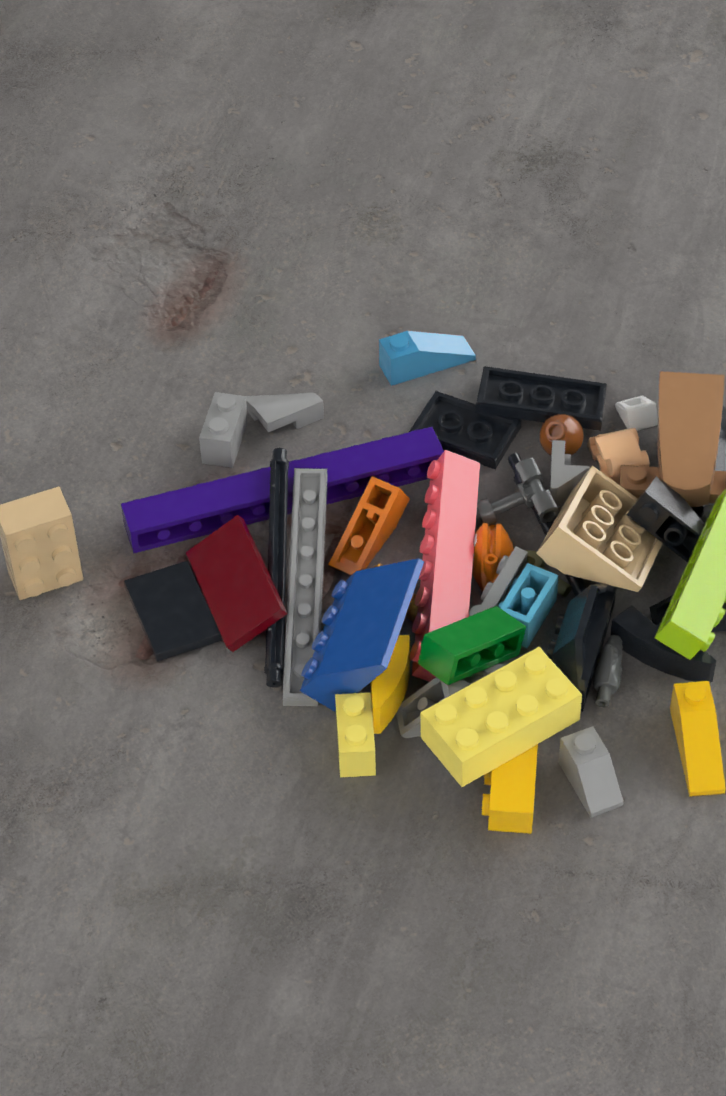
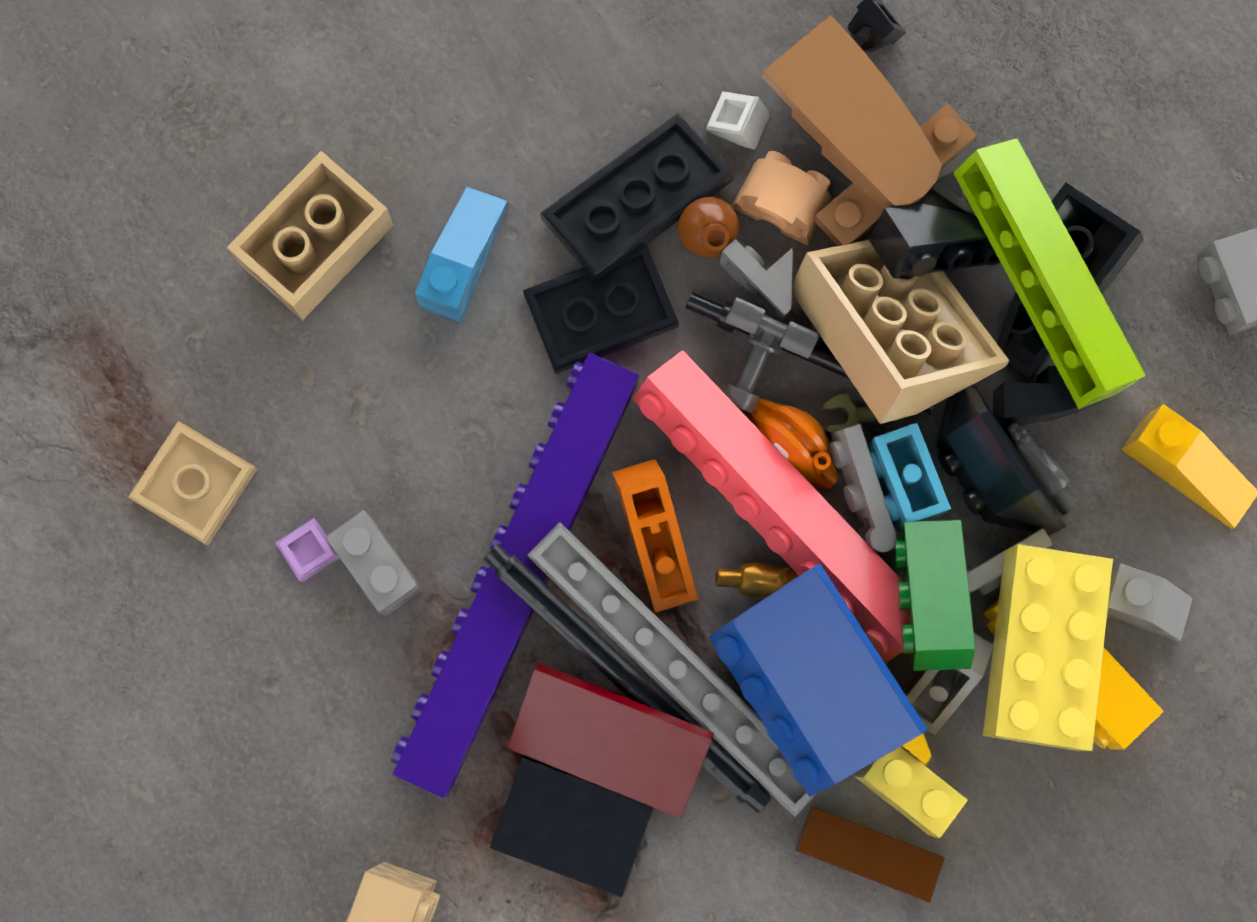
camera: 55 degrees left, 30 degrees up
(187, 344) = (193, 483): none -> tan tile
(197, 407) = (307, 550): none -> lavender tile
(283, 409) = (394, 470): light grey slope -> none
(299, 752) = (870, 854): none -> reddish brown tile
(362, 290) = (311, 235): none -> tan brick

